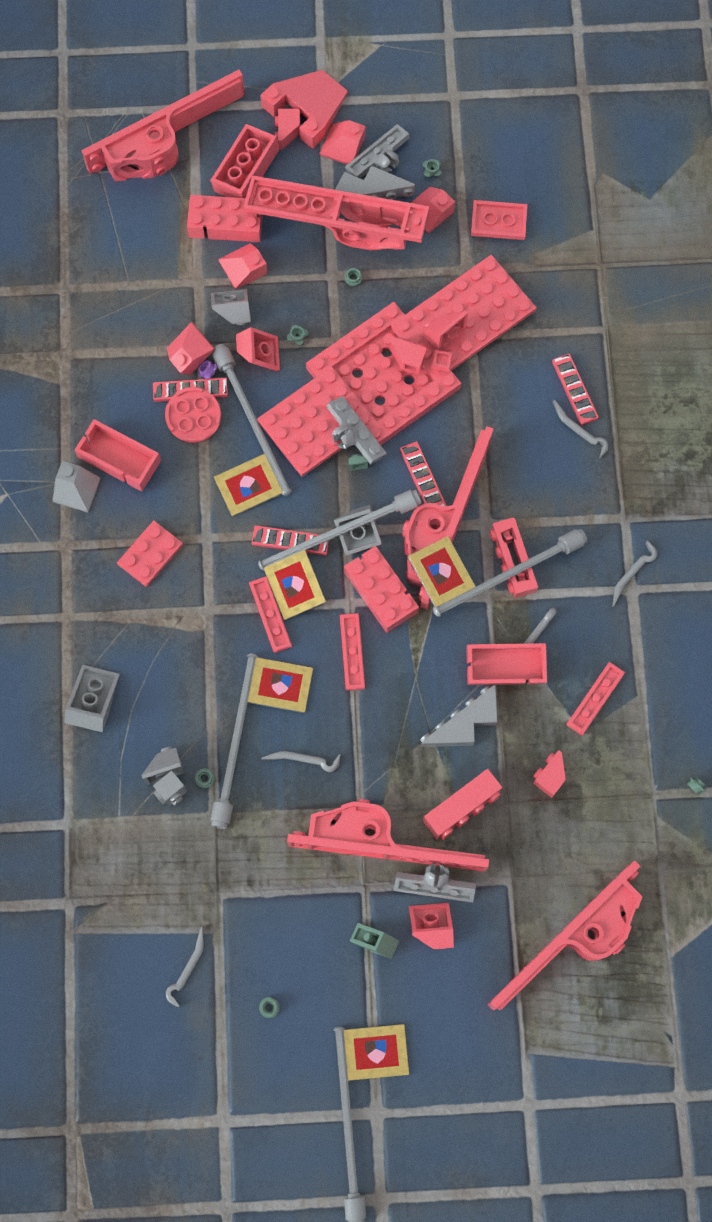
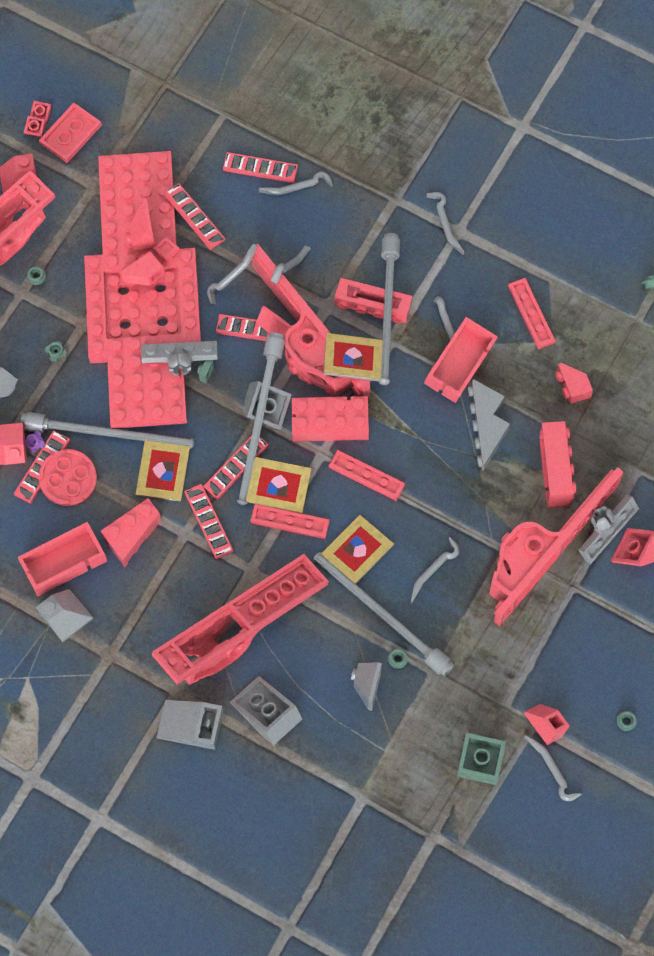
camera: 55 degrees left, 5 degrees down
(43, 645) = (190, 723): none -> light grey slope
(150, 553) = (168, 587): coral plate -> none
(155, 902) = (481, 758): none -> sand green brick
(162, 632) = (250, 610): none -> coral piece
(169, 789) = (392, 688): light grey brick -> none
(177, 492) = (131, 530): none -> coral wedge
(223, 938) = (547, 722): none -> coral slope
(227, 549) = (208, 521): none -> tile
(259, 348) = (46, 388): coral slope -> none
(374, 940) = (623, 603): sand green slope -> none
(434, 487) = (272, 322): none -> coral slope
(453, 427) = (233, 274): none -> light grey piece
(489, 365) = (194, 216): none -> tile
(494, 188) = (38, 119): none -> coral slope
(497, 468) = (282, 268): none -> light grey piece

